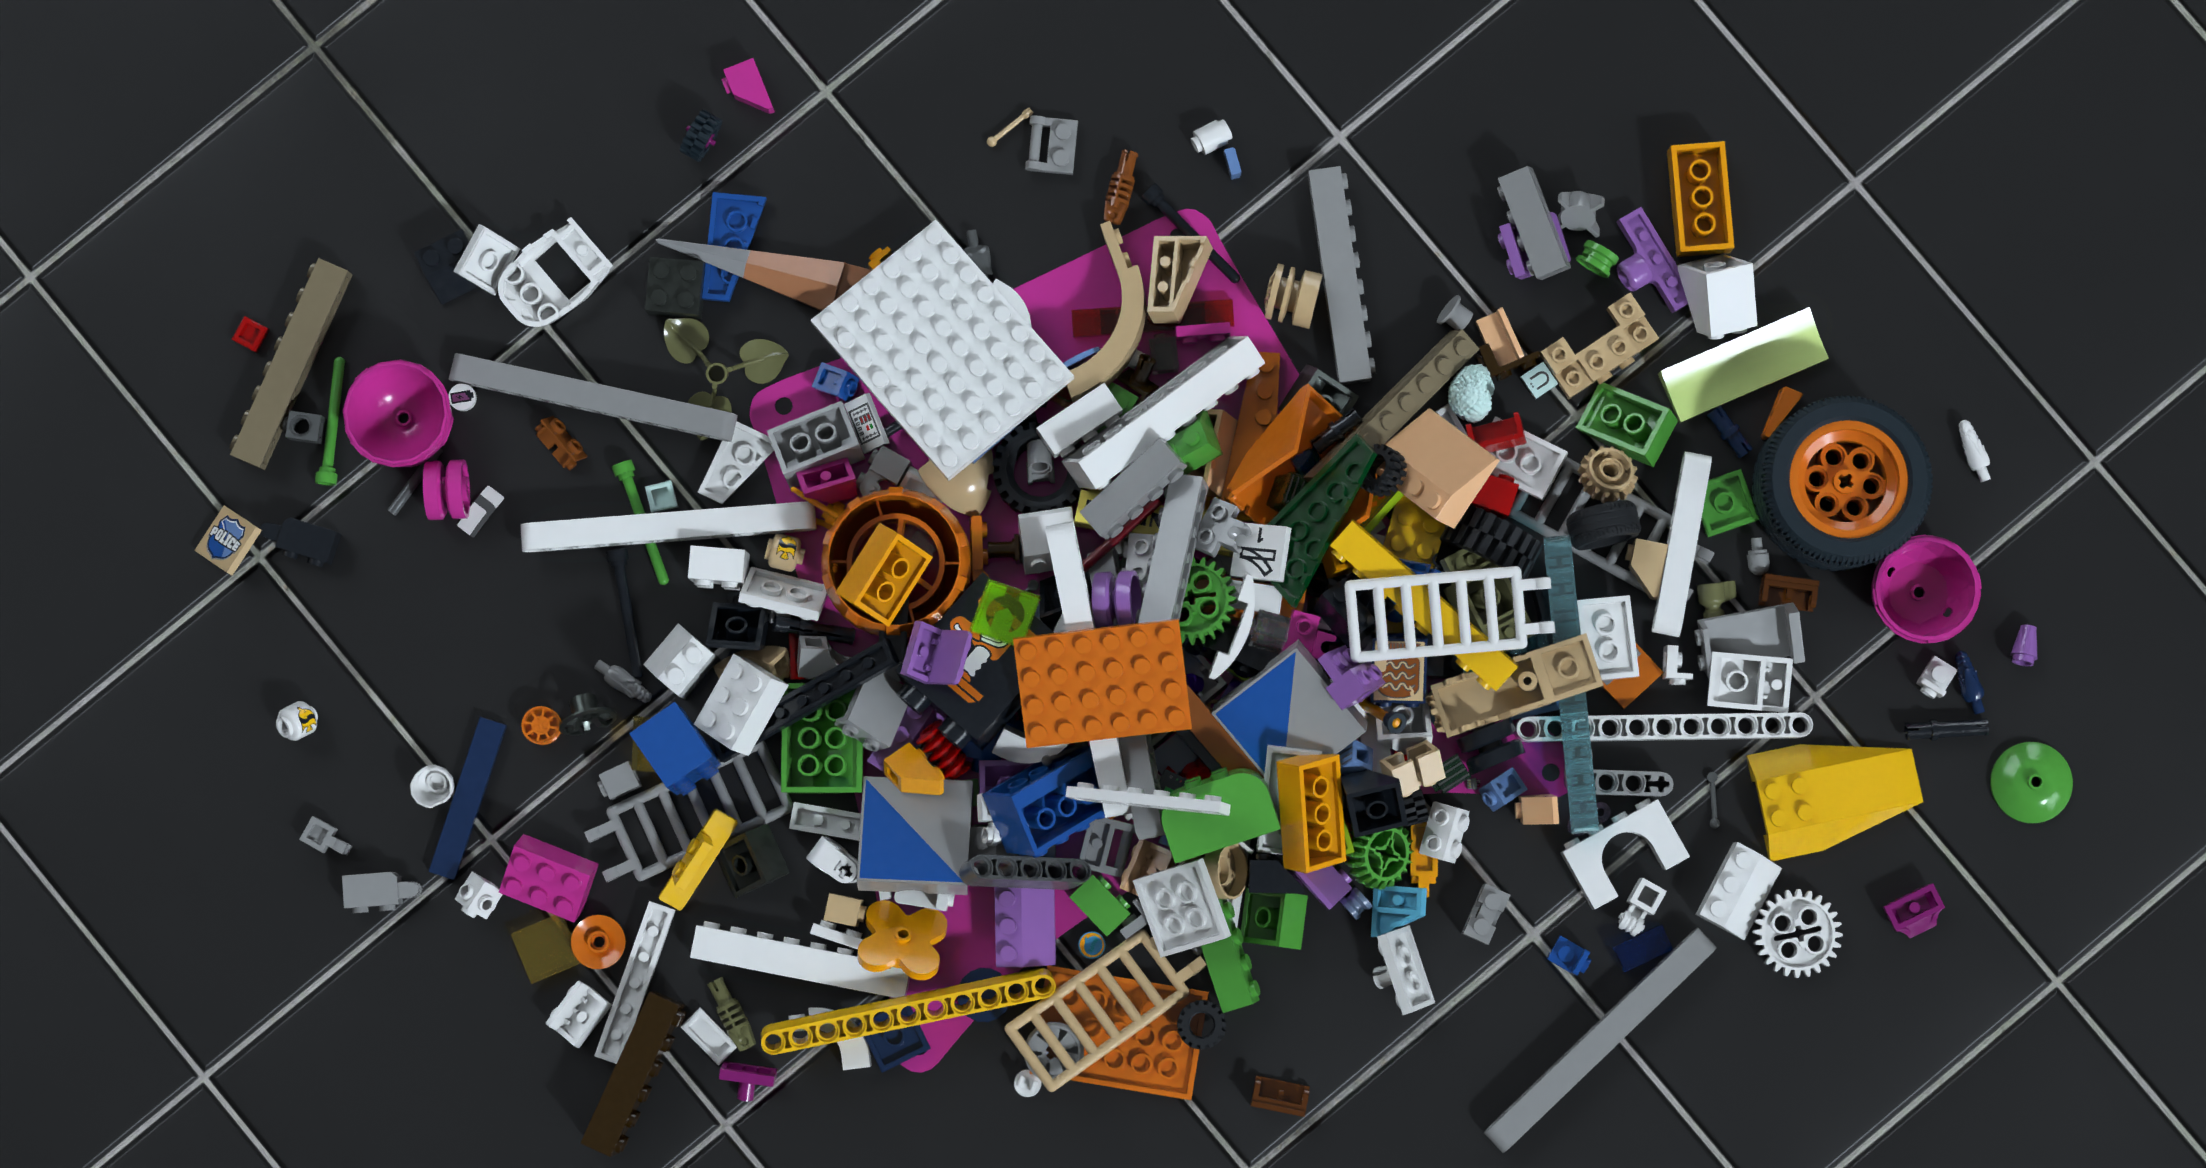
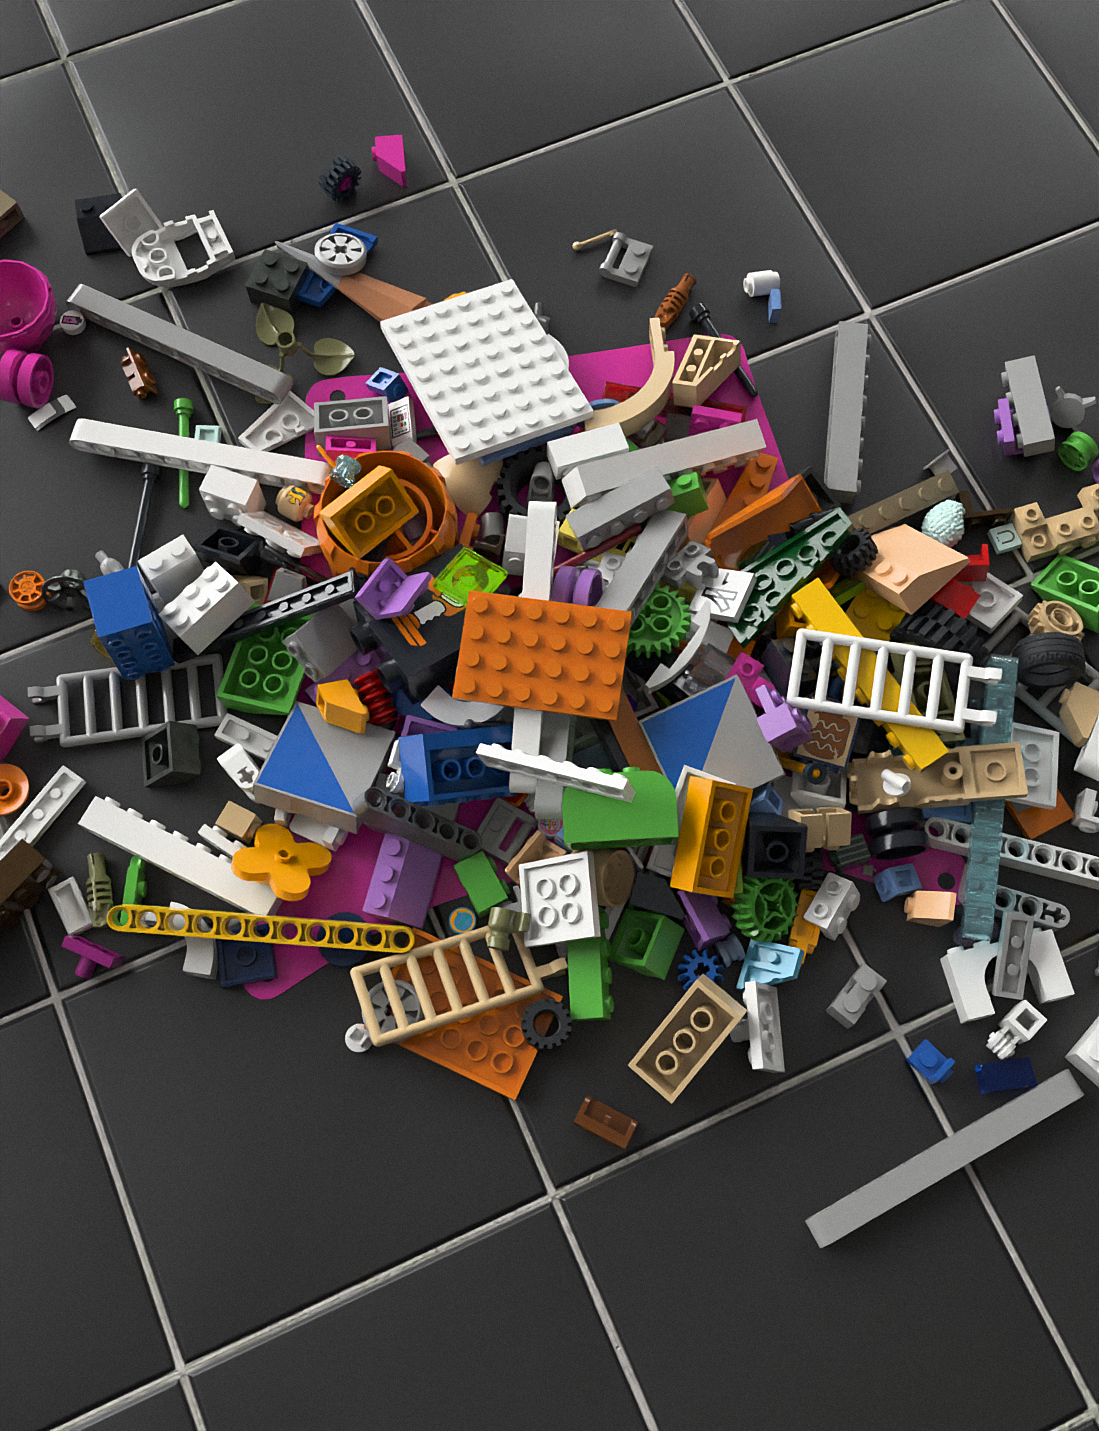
camera: 10 degrees right, 15 degrees down
(619, 781) = (78, 654): light grey brick -> none
(698, 859) = (120, 739): yellow bracket -> none
(741, 253) = (340, 254): none -> light grey wheel
(767, 1003) = (135, 885): none -> bright green hinge
(845, 536) = (345, 471): none -> clear light blue wheel
(1000, 521) = (492, 527): none -> light grey beam
(1134, 942) = (502, 923): none -> olive piece
(1292, 296) = (802, 411): tan wheel -> none
(1336, 1001) = (687, 1038): none -> tan brick
(1342, 934) = (691, 966): none -> blue gear
(1476, 706) = (895, 783): none -> white plate
(1499, 334) = (980, 489): light nougat panel -> none
(1624, 837) = (1012, 955): none -> light grey hinge

